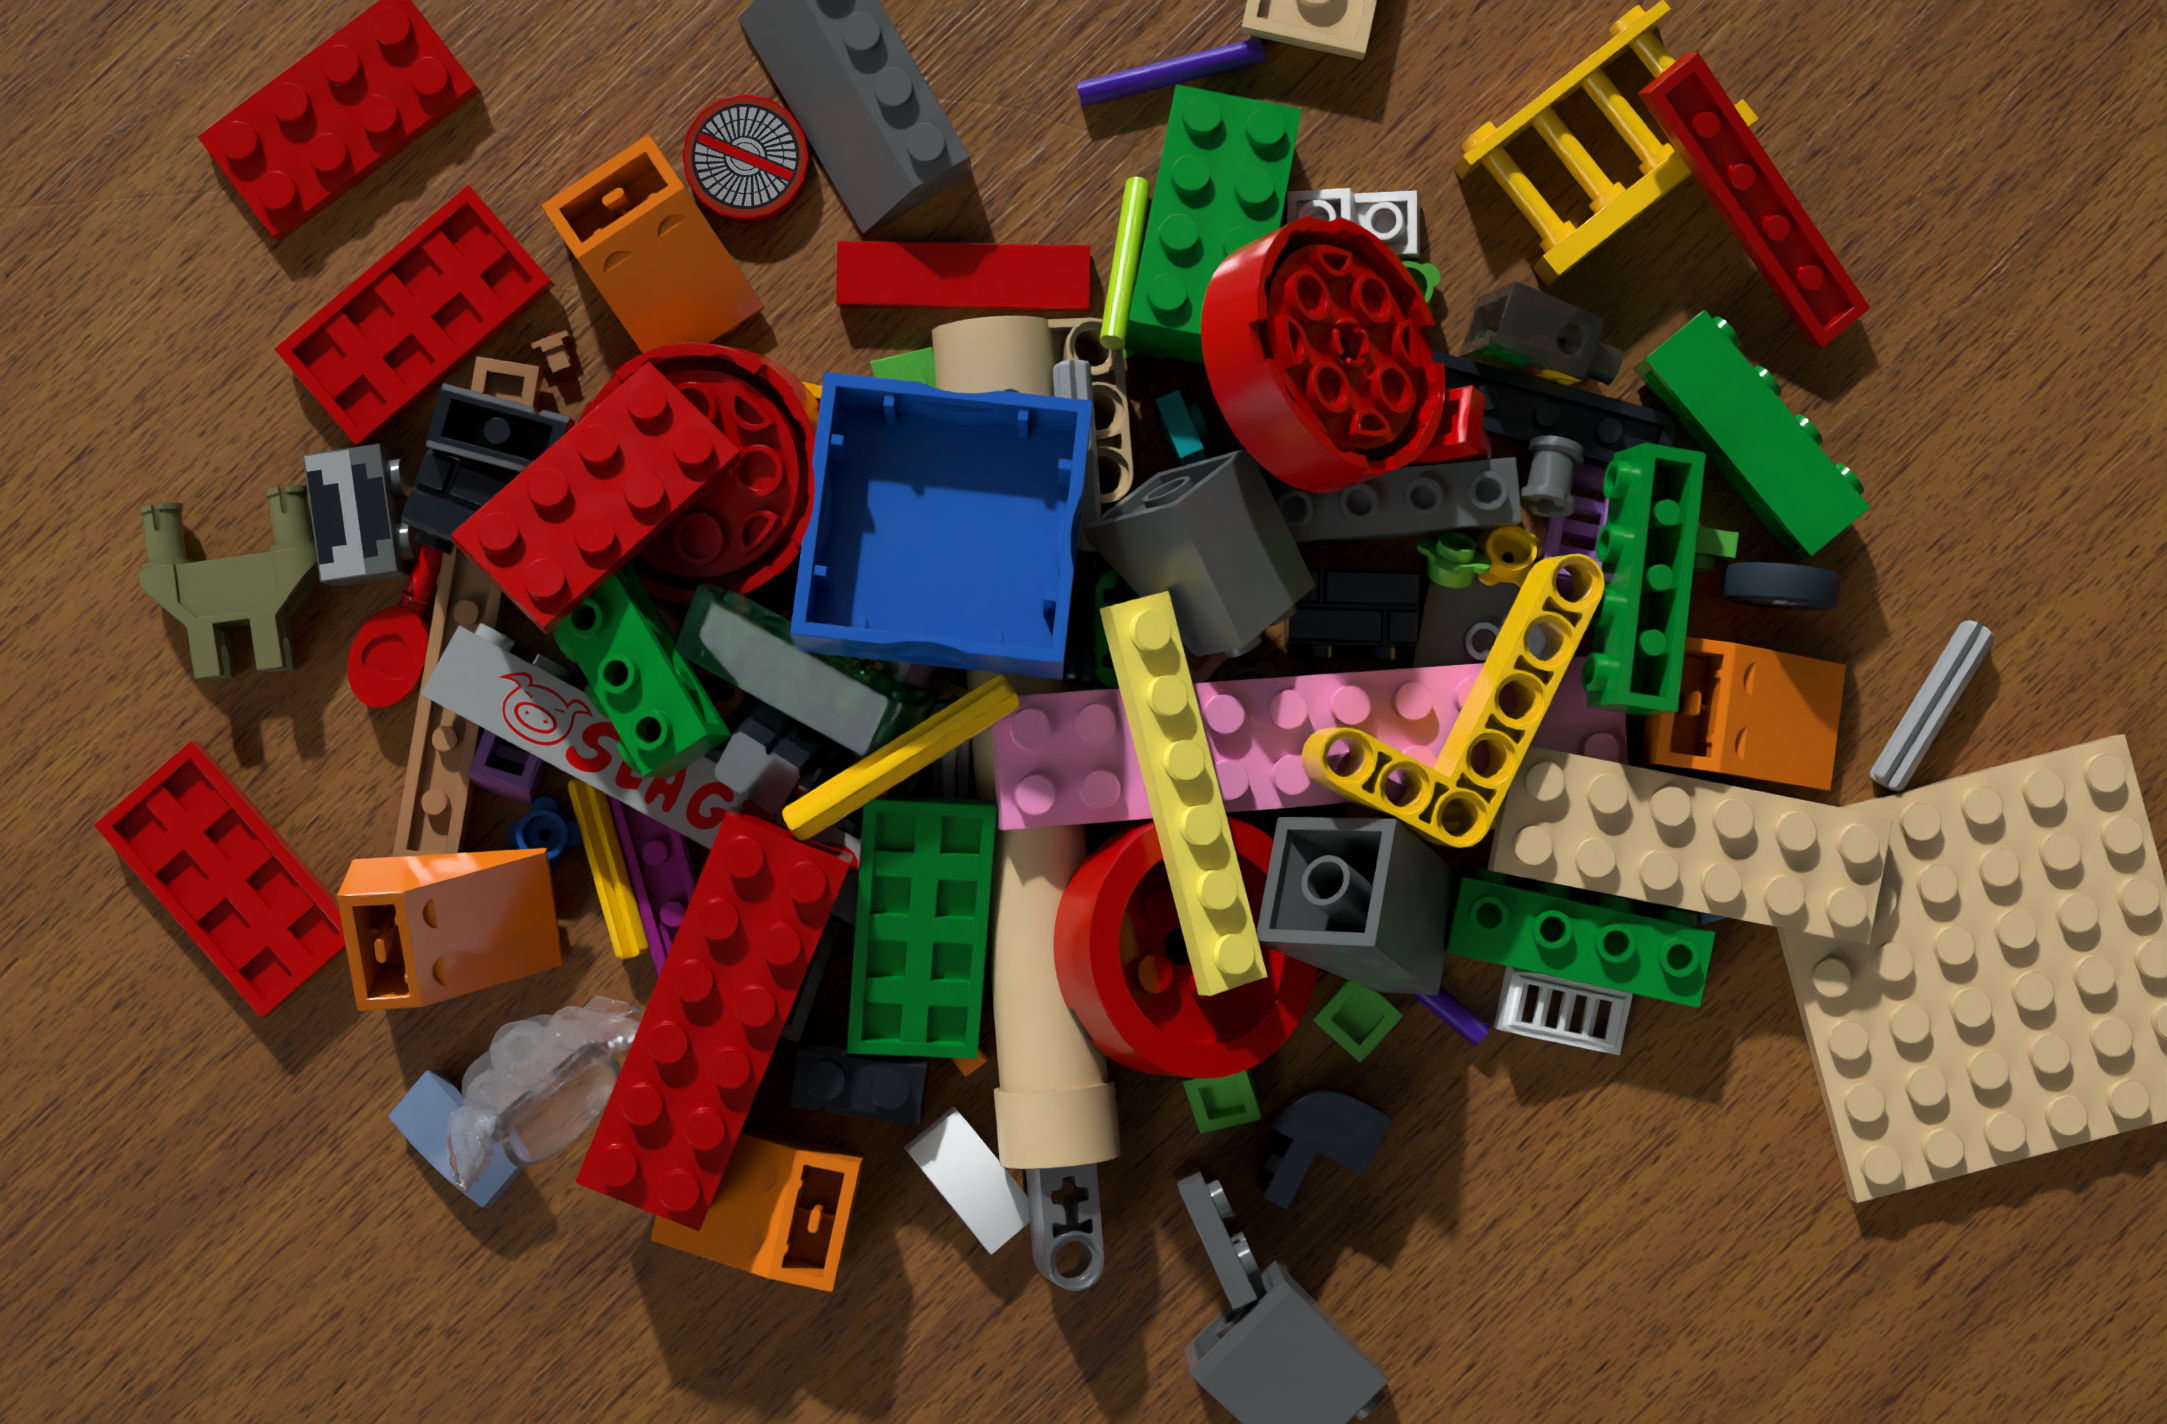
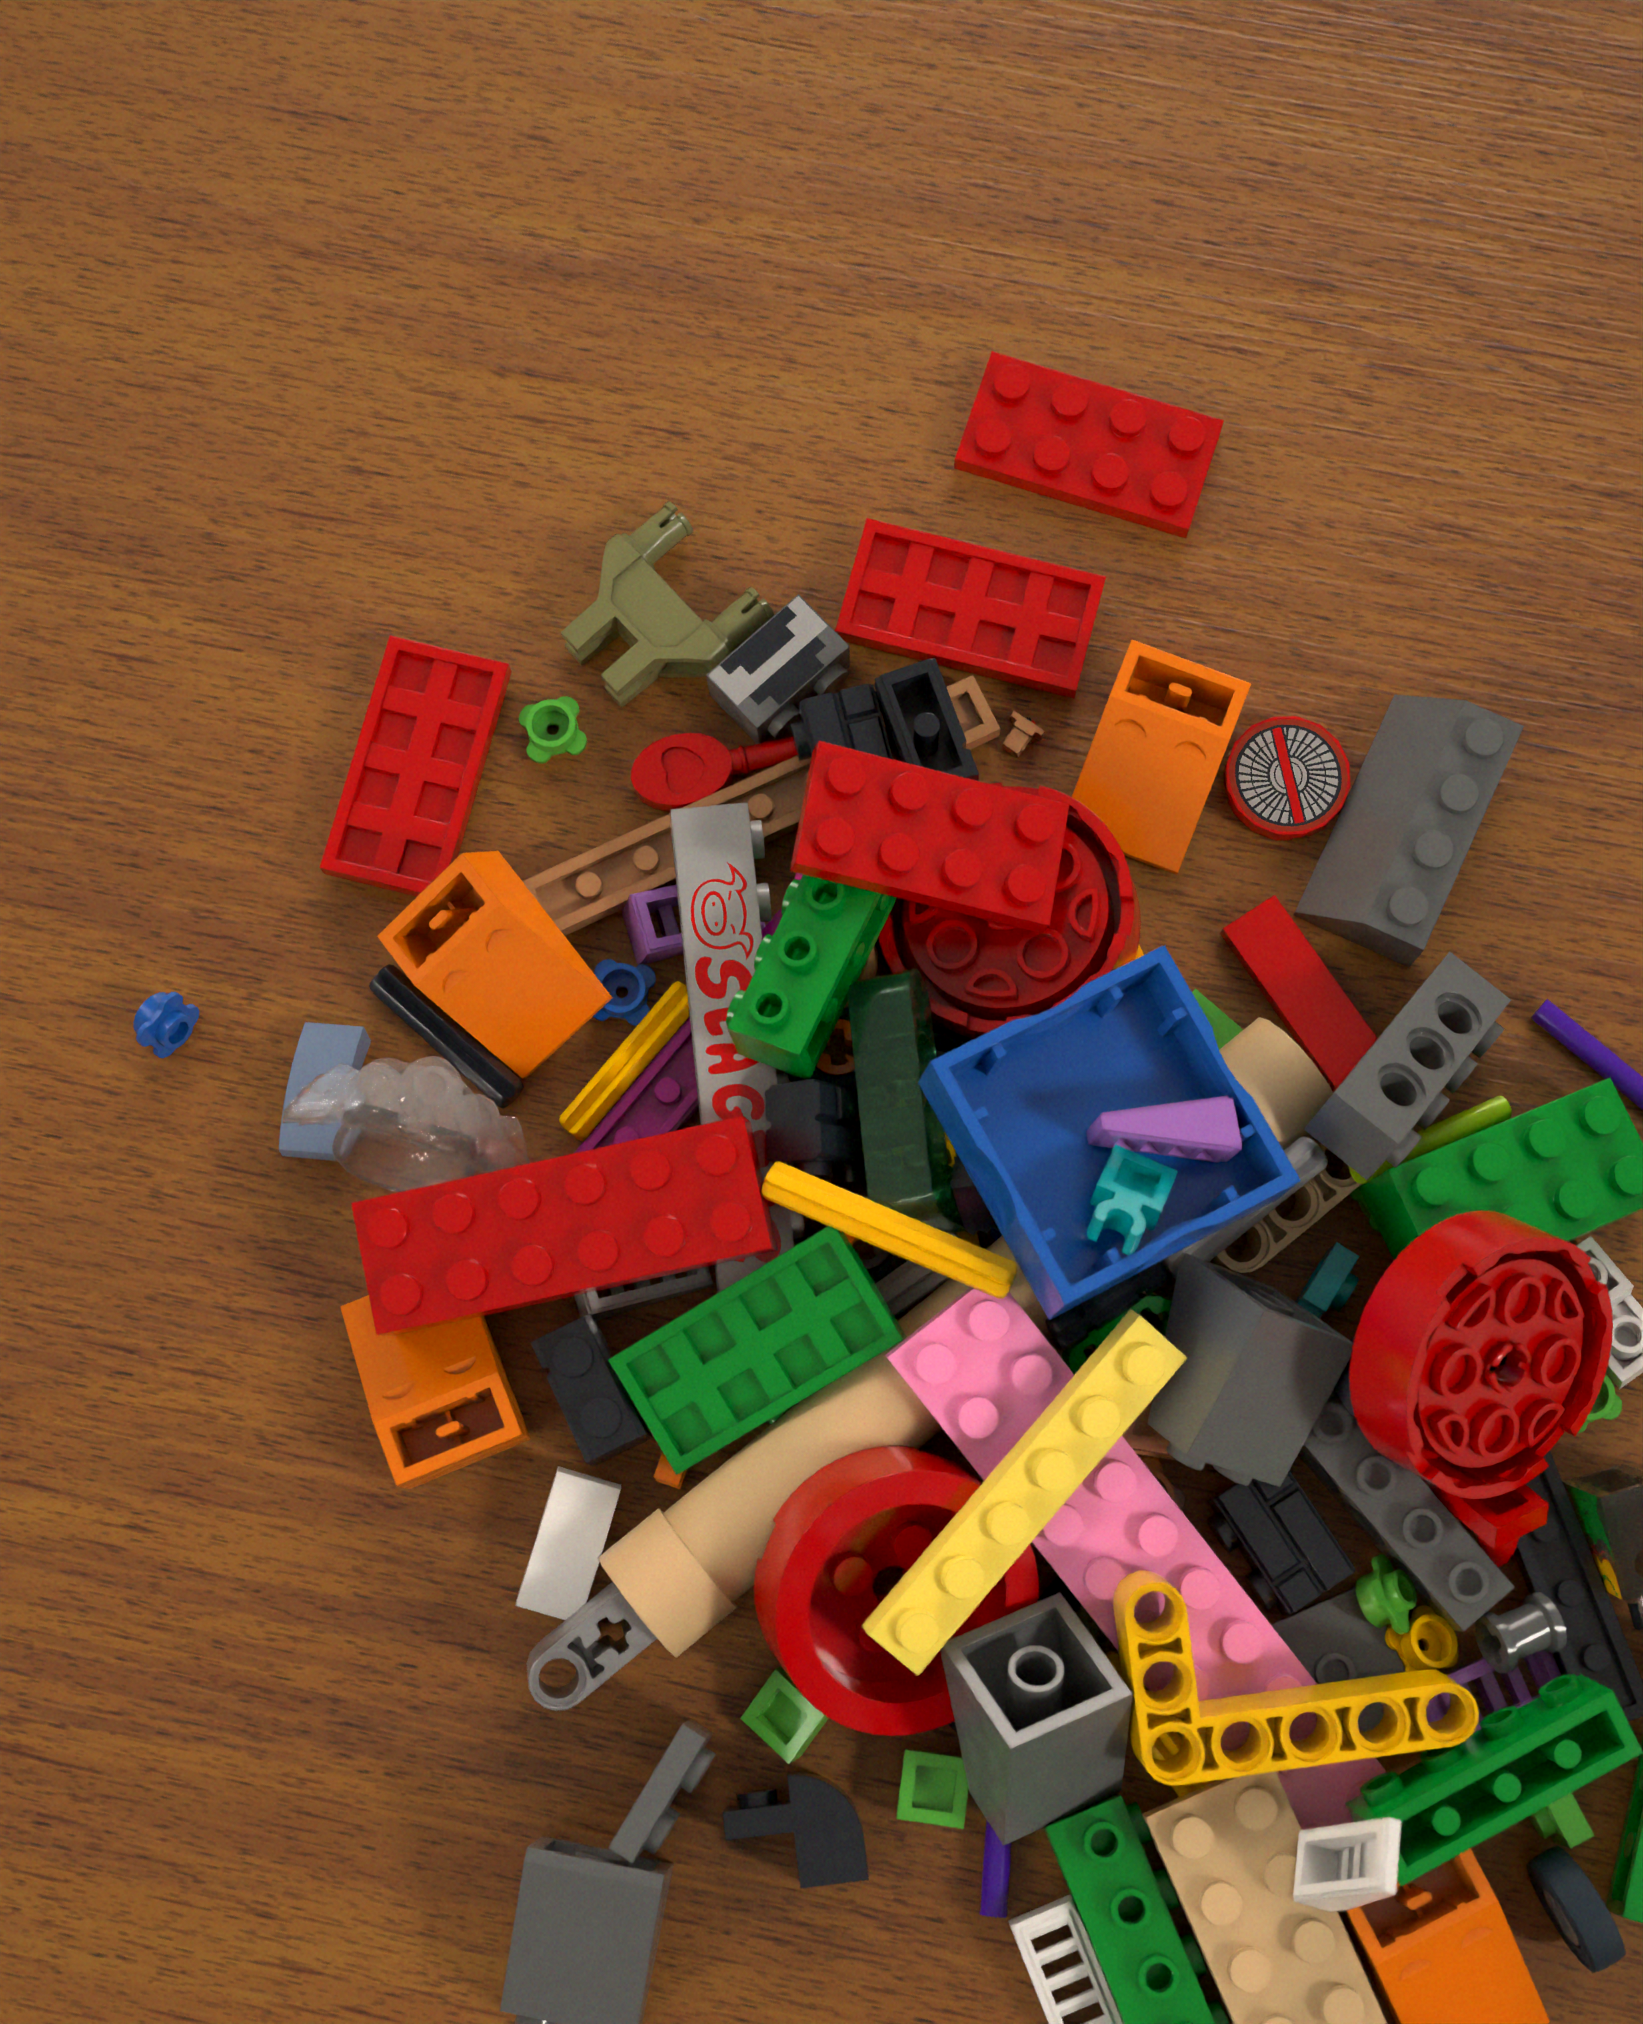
camera: 65 degrees right, 10 degrees down
(257, 740) = (552, 712): none -> bright green plate
(307, 1234) = (164, 1022): none -> blue plate
(483, 1005) = (446, 1036): none -> black axle
(987, 461) = (1183, 1129): none -> medium lavender slope
(1010, 546) = (1130, 1196): none -> teal plate
(1056, 238) = (1409, 1066): none -> dark grey brick
(1634, 743) = (1347, 1864): none -> white slope

